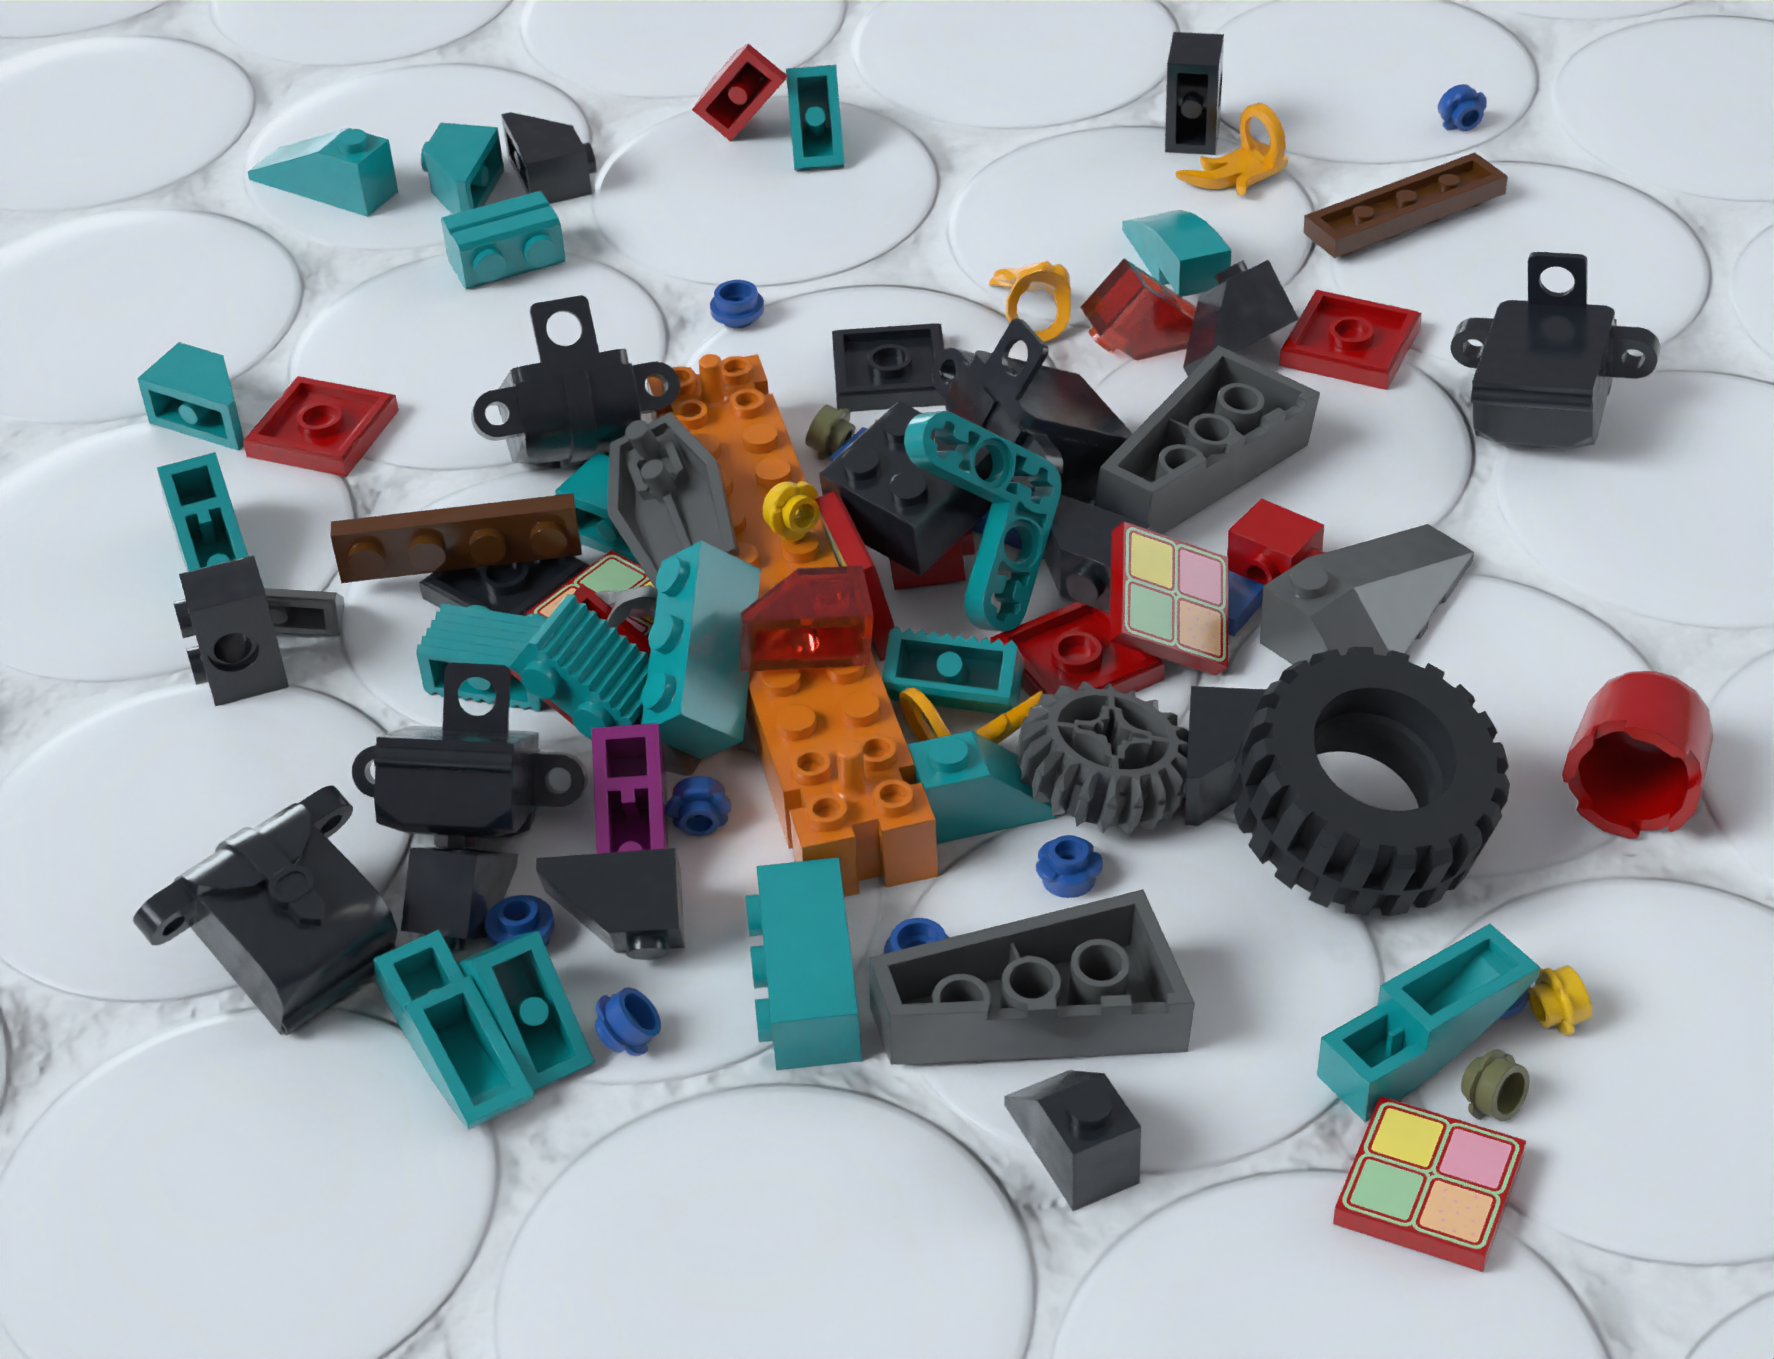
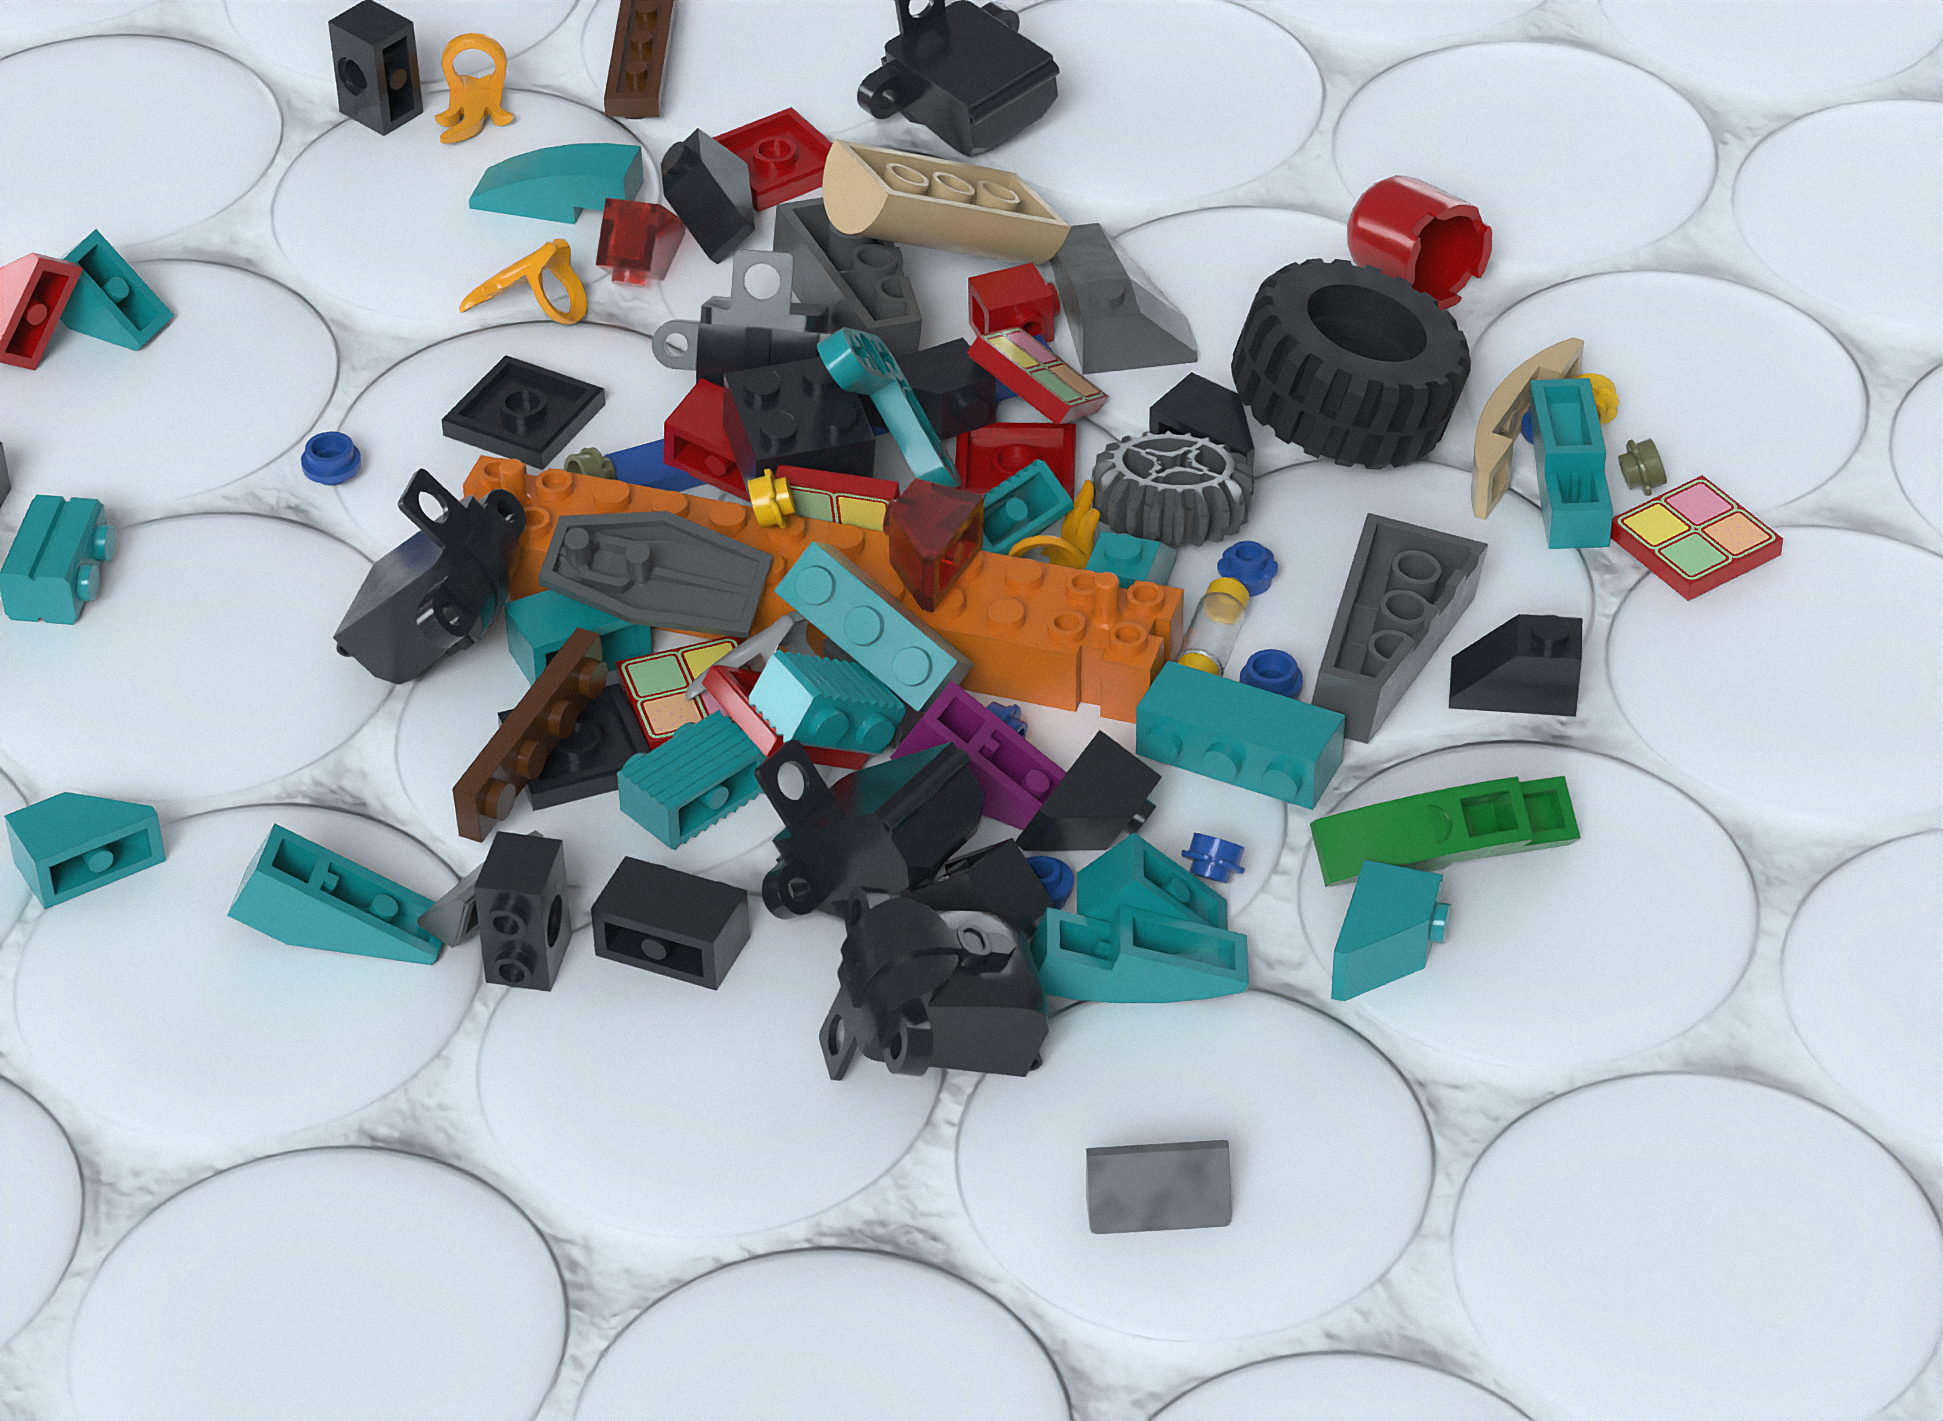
camera: 60 degrees left, 0 degrees up
(153, 1187) = (1158, 1187): none -> flat silver slope
(308, 724) = (670, 922): none -> black brick
(321, 426) = (203, 786): red tile -> none
(600, 1189) = (1388, 928): none -> teal slope
(776, 1176) = (1446, 827): none -> green slope
(937, 885) = (1215, 627): none -> clear piece
(1313, 425) = (938, 204): none -> tan brick
(1367, 957) = (1502, 420): none -> tan slope

